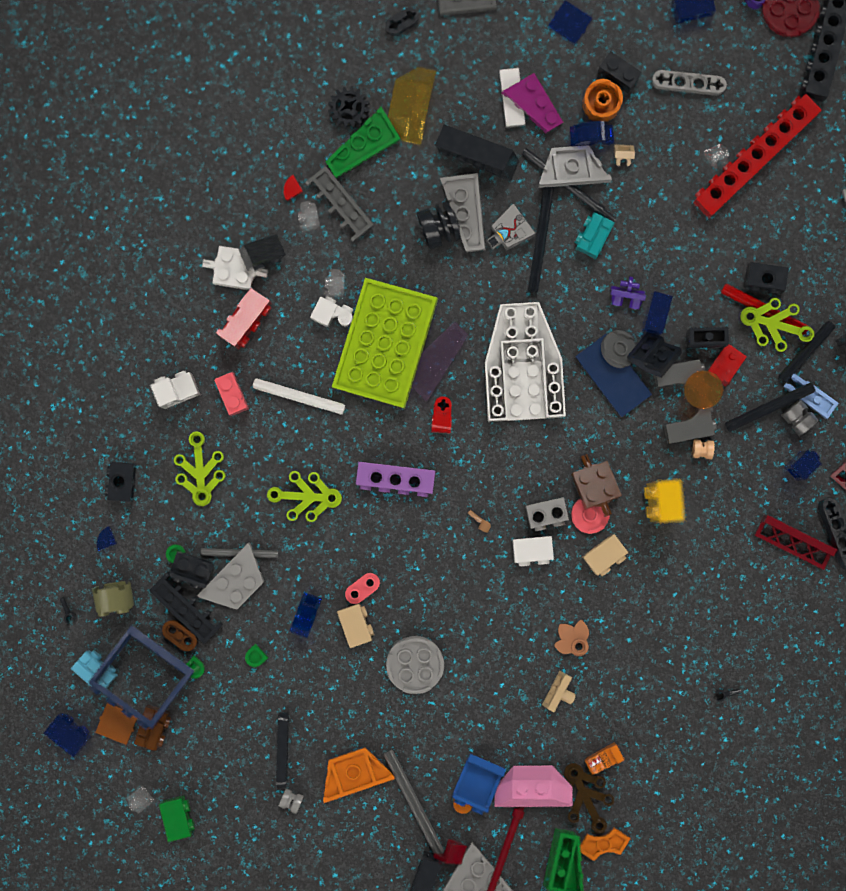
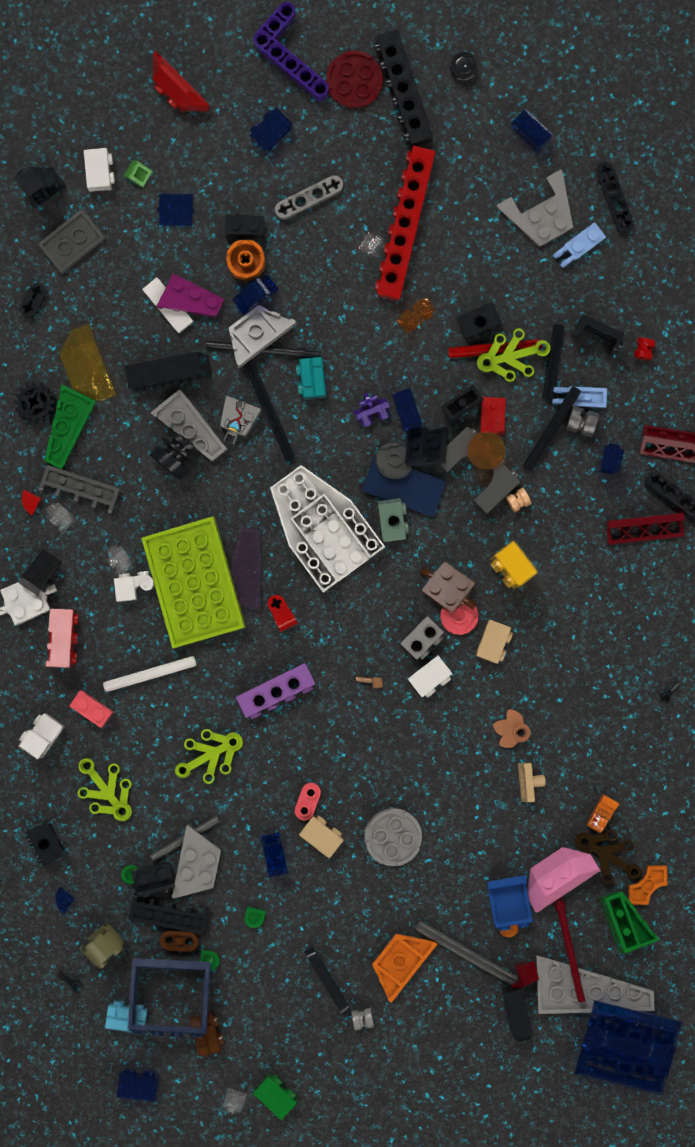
camera: 40 degrees left, 0 degrees up
(115, 724) = (173, 1050): dark orange piece -> none
(586, 386) = (390, 531): none -> sand green brick
(624, 152) = (292, 291): tan tile -> none
(707, 240) = (423, 310): none -> clear orange hinge

